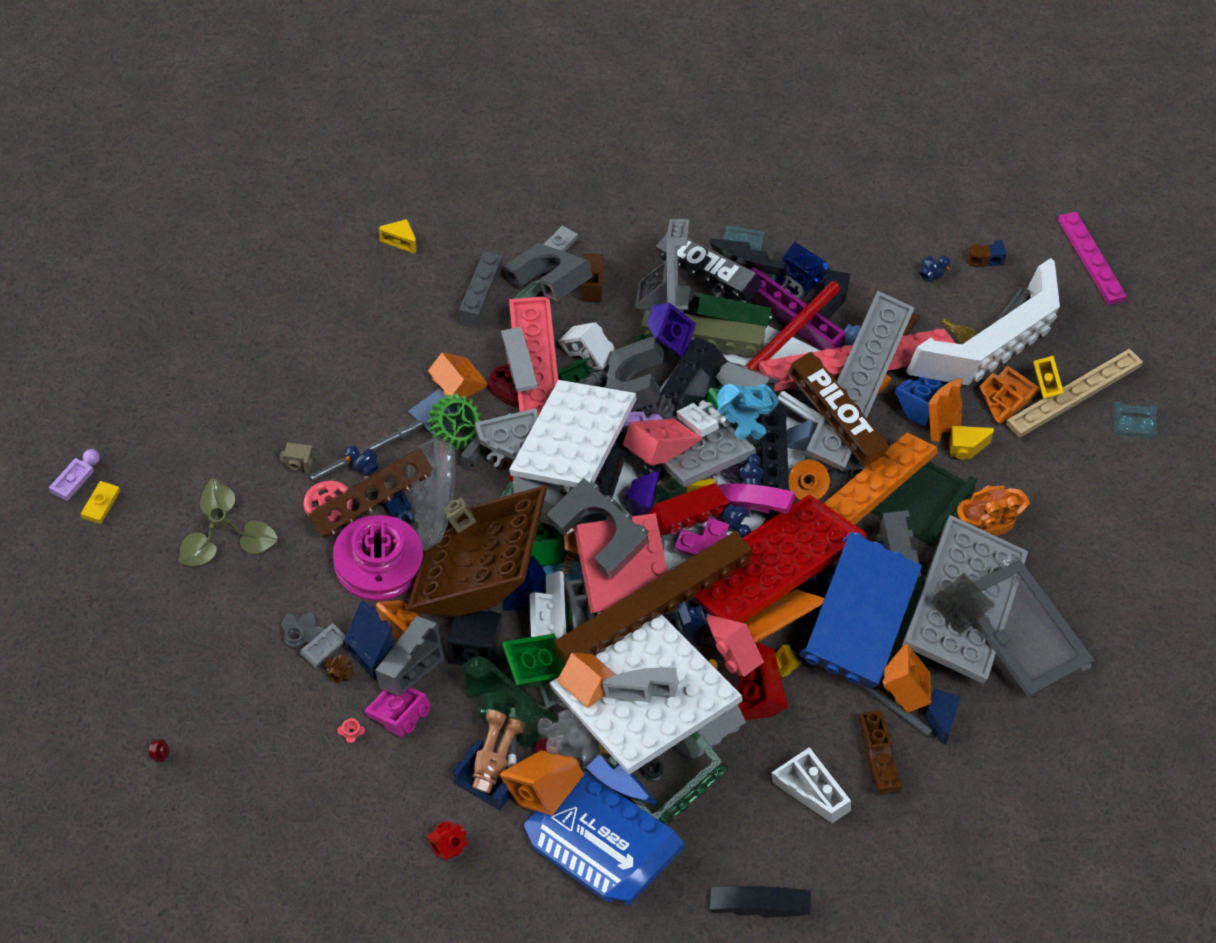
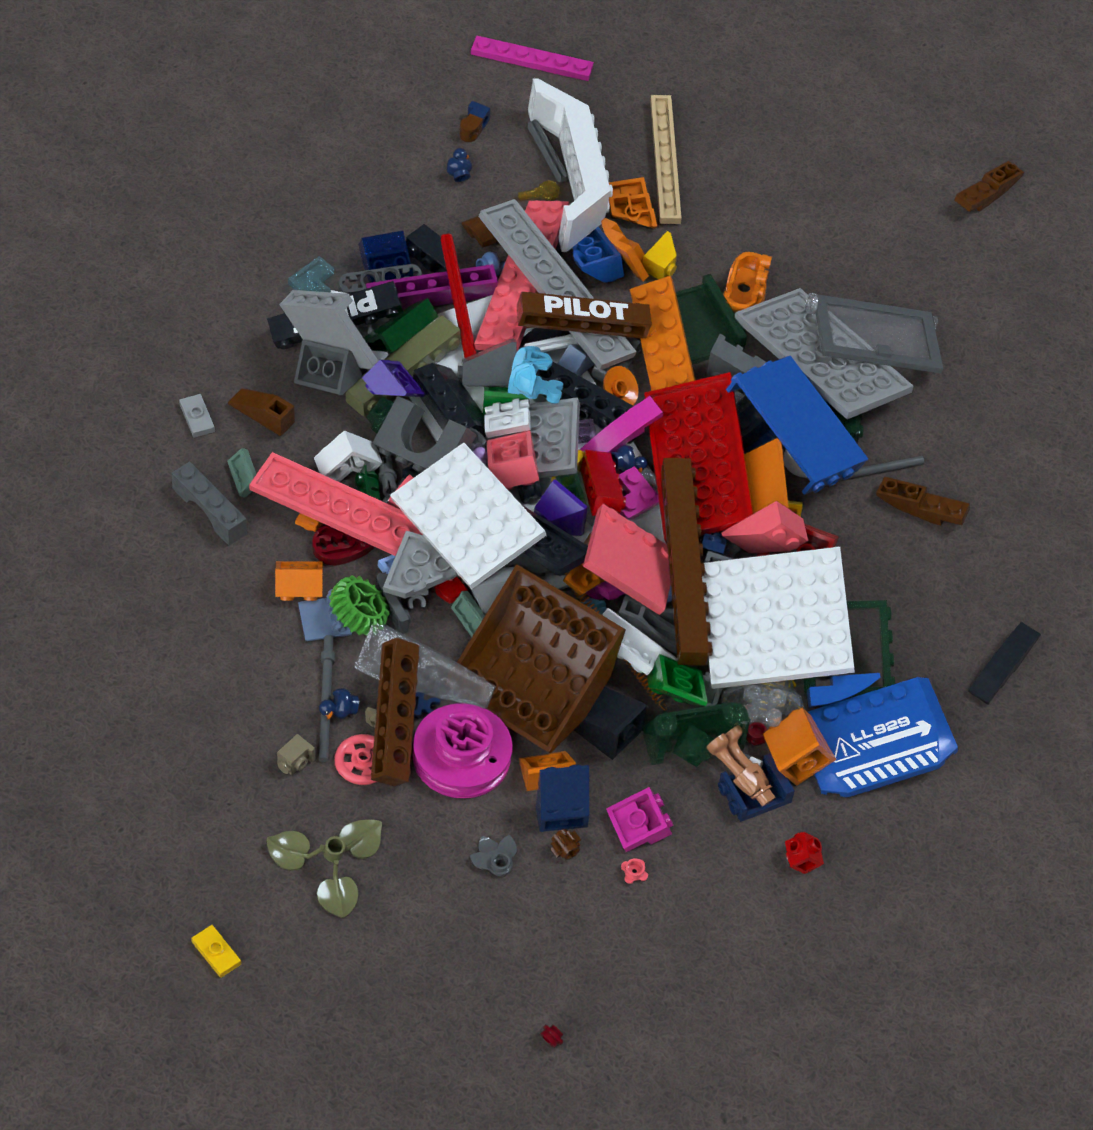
camera: 60 degrees left, 0 degrees up
(75, 475) = (167, 956): lavender plate -> none
(323, 645) = (528, 844): light grey plate -> none
(398, 235) = (85, 531): yellow slope -> none
(411, 657) = (604, 779): dark grey wedge -> none
(456, 510) = (477, 654): dark tan brick -> none
(519, 359) = (337, 512): light grey slope -> none
(565, 275) = (214, 434): dark grey arch -> none
(584, 678) = (739, 650): orange slope -> none
(587, 500) = (626, 531): dark grey arch -> none
(642, 684) = (782, 608): light grey slope -> none
(742, 254) = (348, 282): black slope -> none
(752, 473) = (596, 416): dark blue animal -> none
(813, 786) = (926, 562): white wedge -> none
(908, 680) = (876, 439): orange slope -> none
(942, 713) = (914, 439): dark blue slope -> none
(962, 603) = (840, 354): clear smoke hinge -> none
(1048, 377) = (641, 163): yellow slope -> none
(1135, 426) = (725, 144): clear light blue plate -> none

